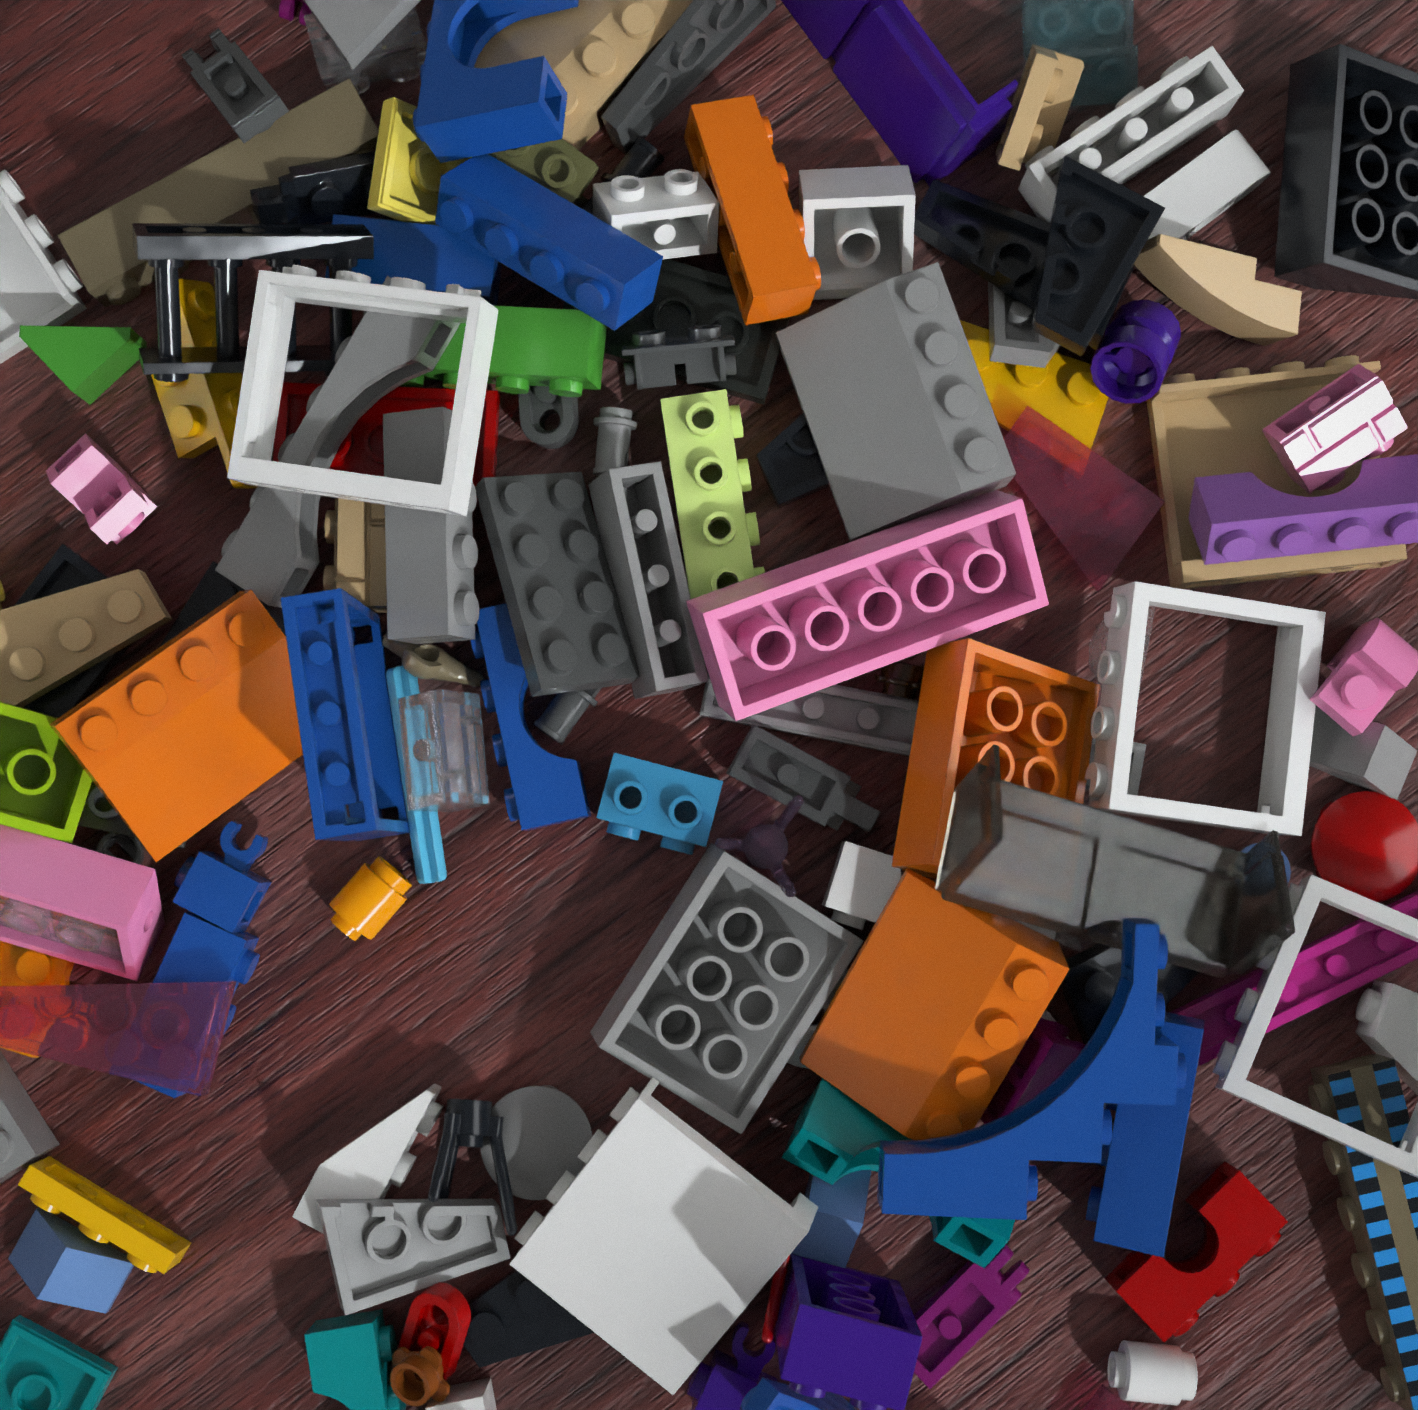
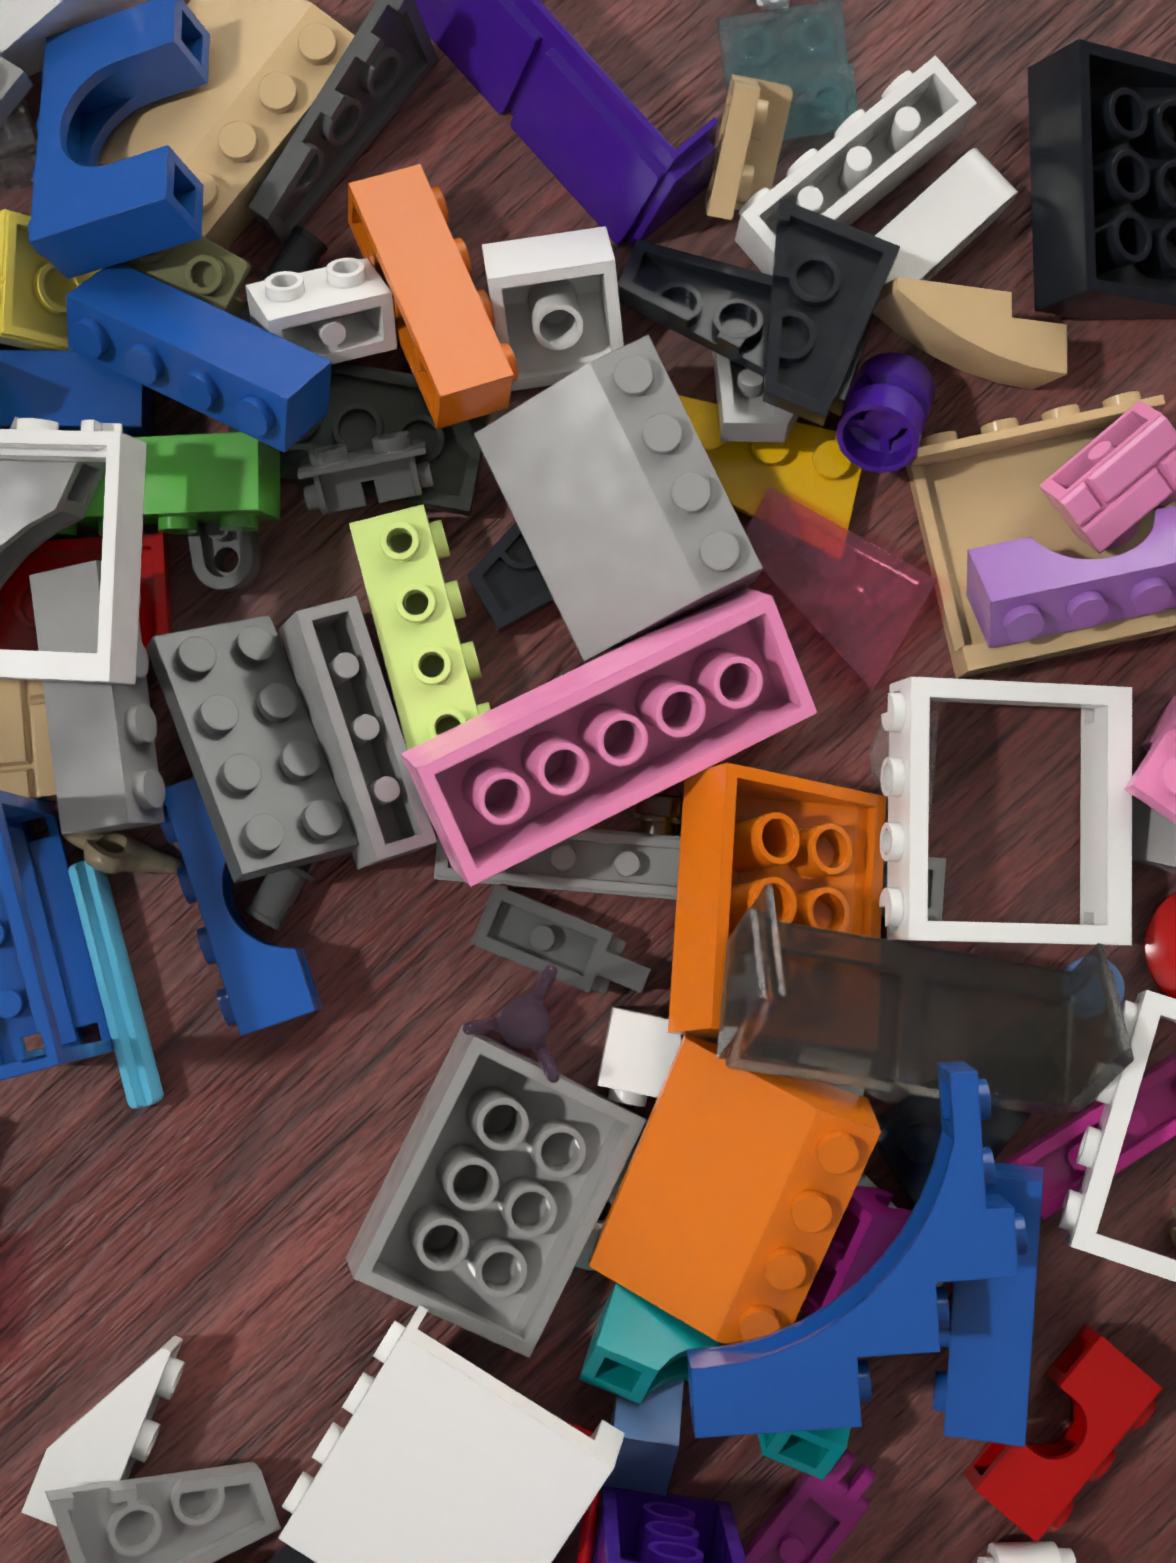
camera: 15 degrees left, 0 degrees up
(369, 899) = (76, 1133): light orange brick -> none
(443, 751) = (142, 954): clear brick -> none
(466, 1126) = (212, 1384): black plant -> none
(540, 1139) = (293, 1389): light grey dish -> none
(613, 438) = (302, 573): light grey pin -> none
(659, 801) = (397, 986): dark azure brick -> none

